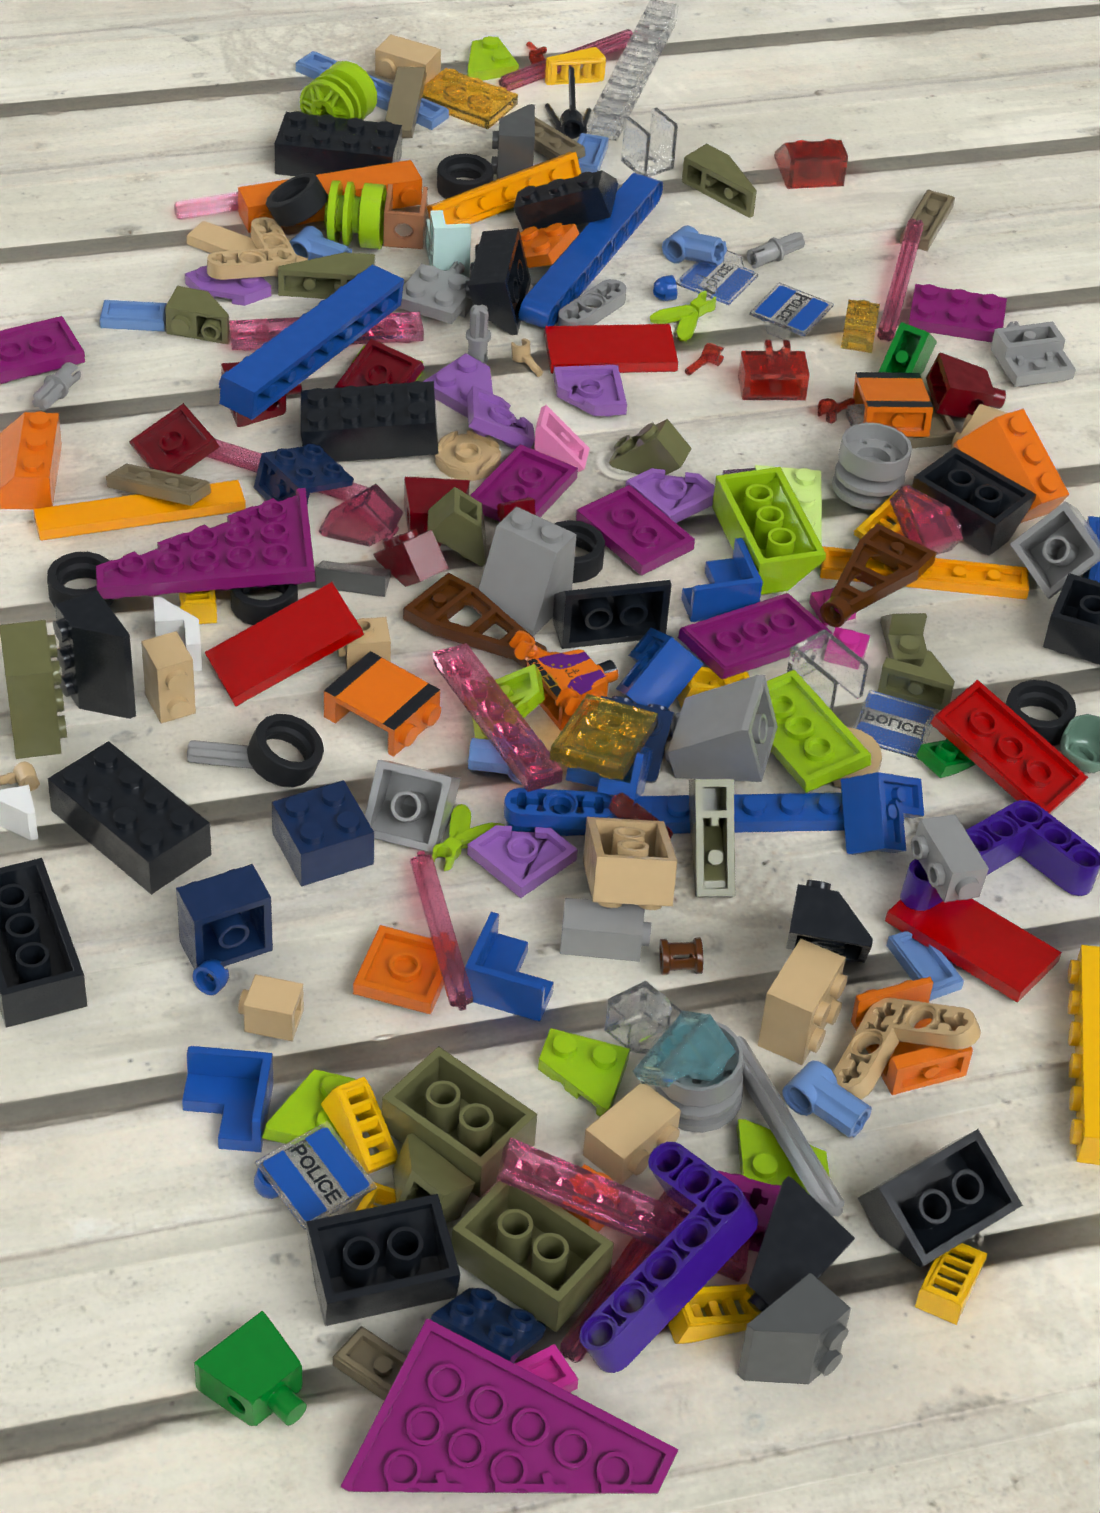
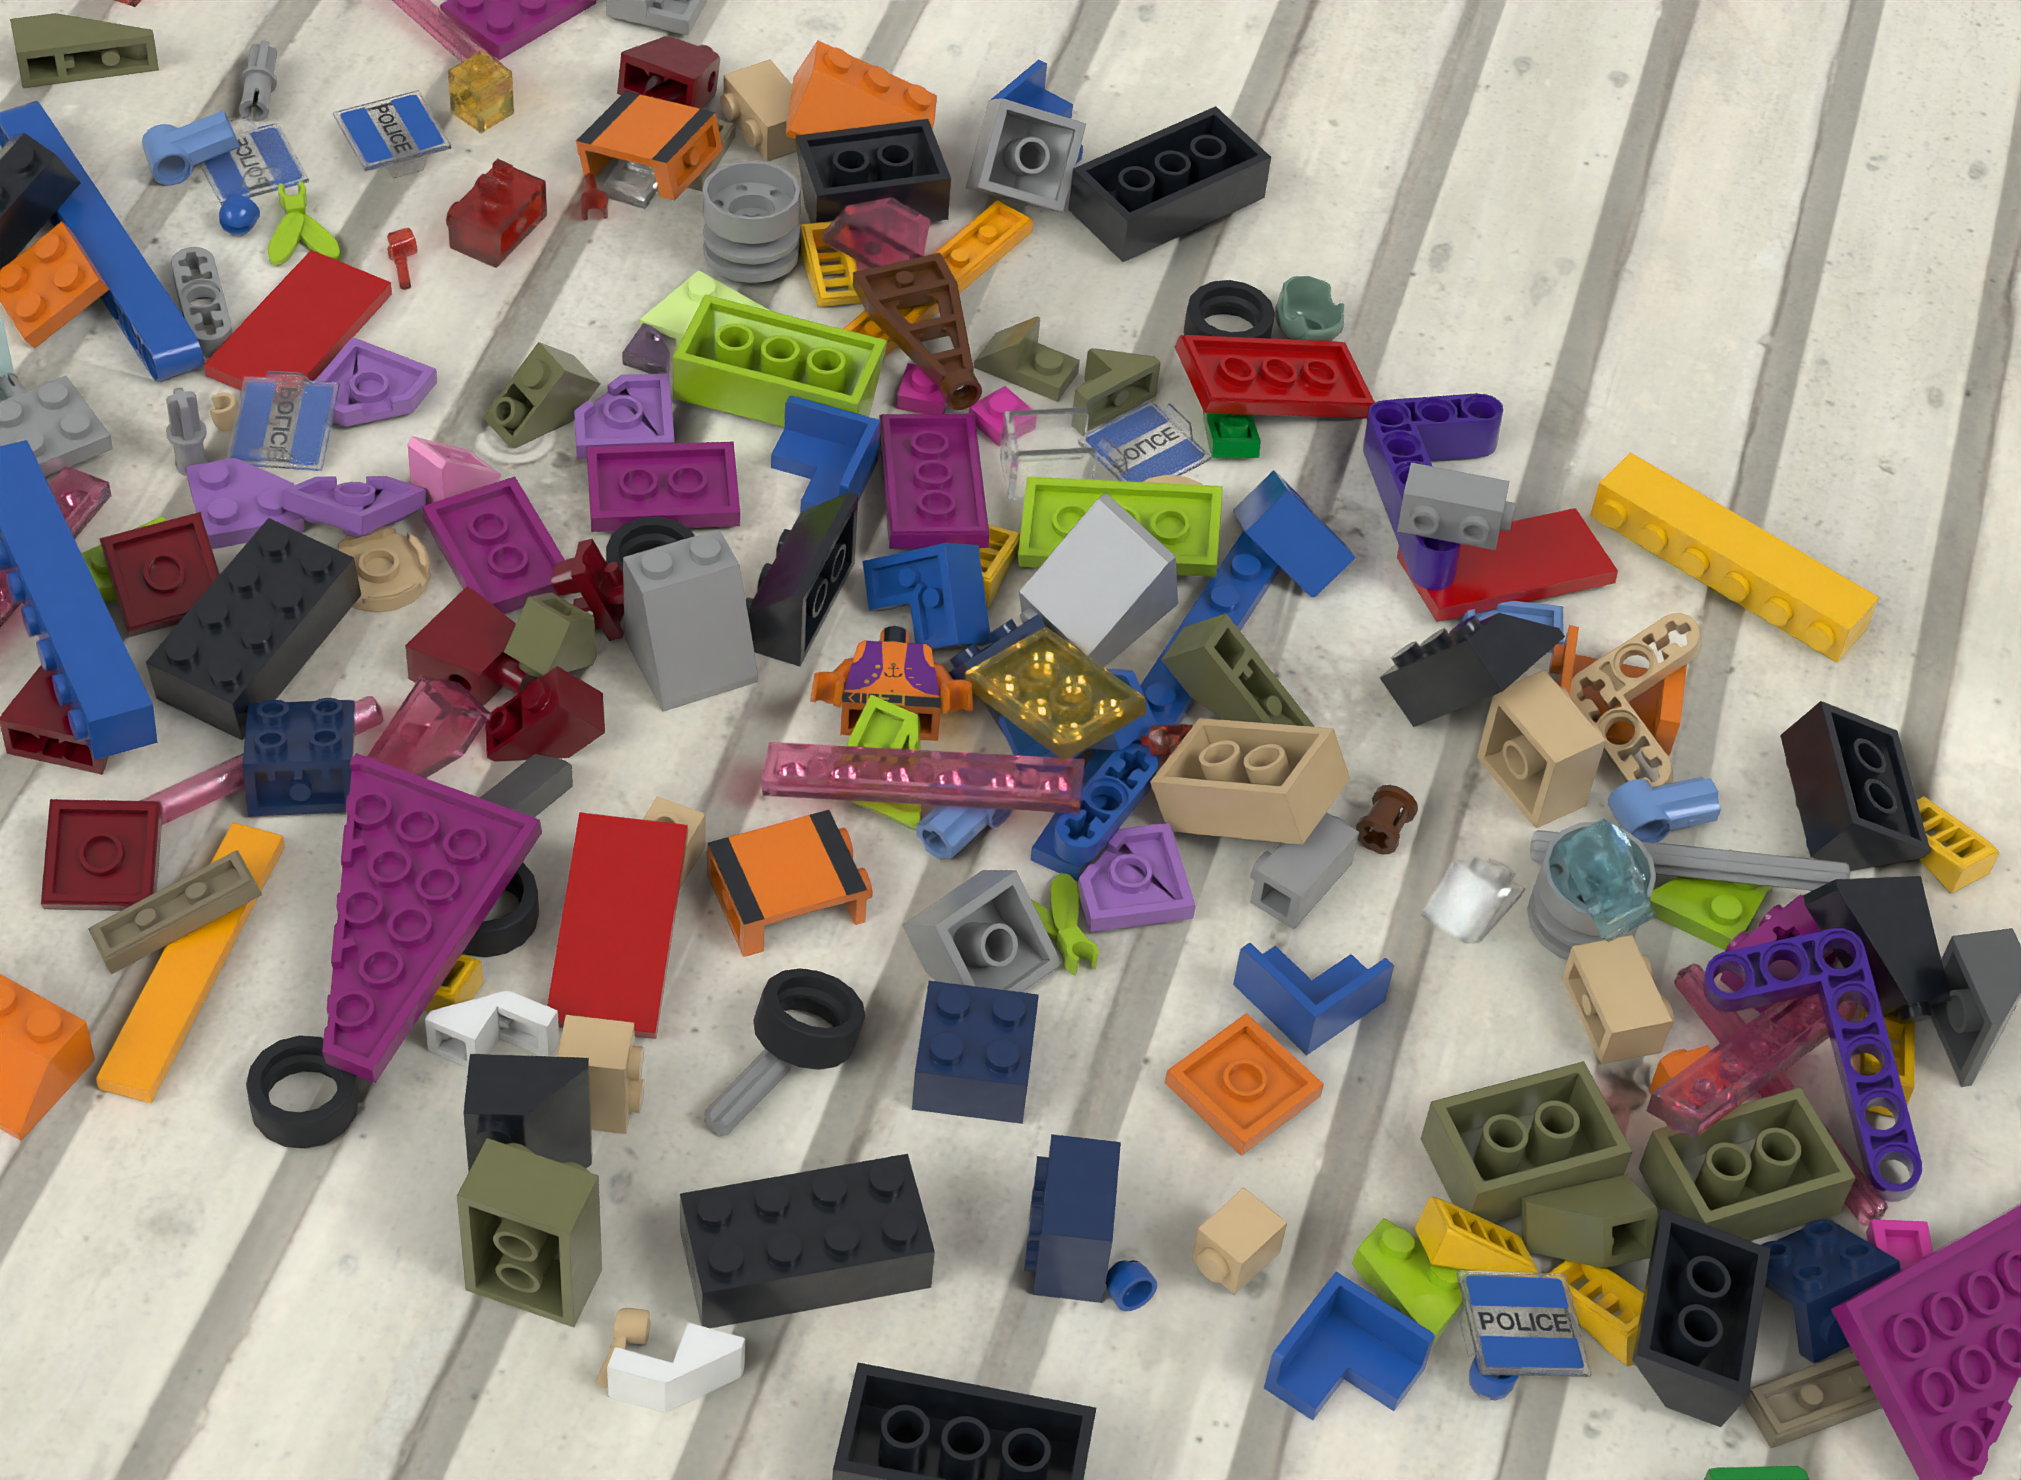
camera: 60 degrees left, 5 degrees up
(441, 931) = (1225, 1012): clear pink axle -> none
(445, 599) = (651, 746): reddish brown plate -> none
(500, 277) = (91, 346): black slope -> none
(531, 371) = (283, 421): none -> clear piece
(584, 1067) = (1487, 993): lime wing -> none
(908, 350) = (570, 86): green slope -> none

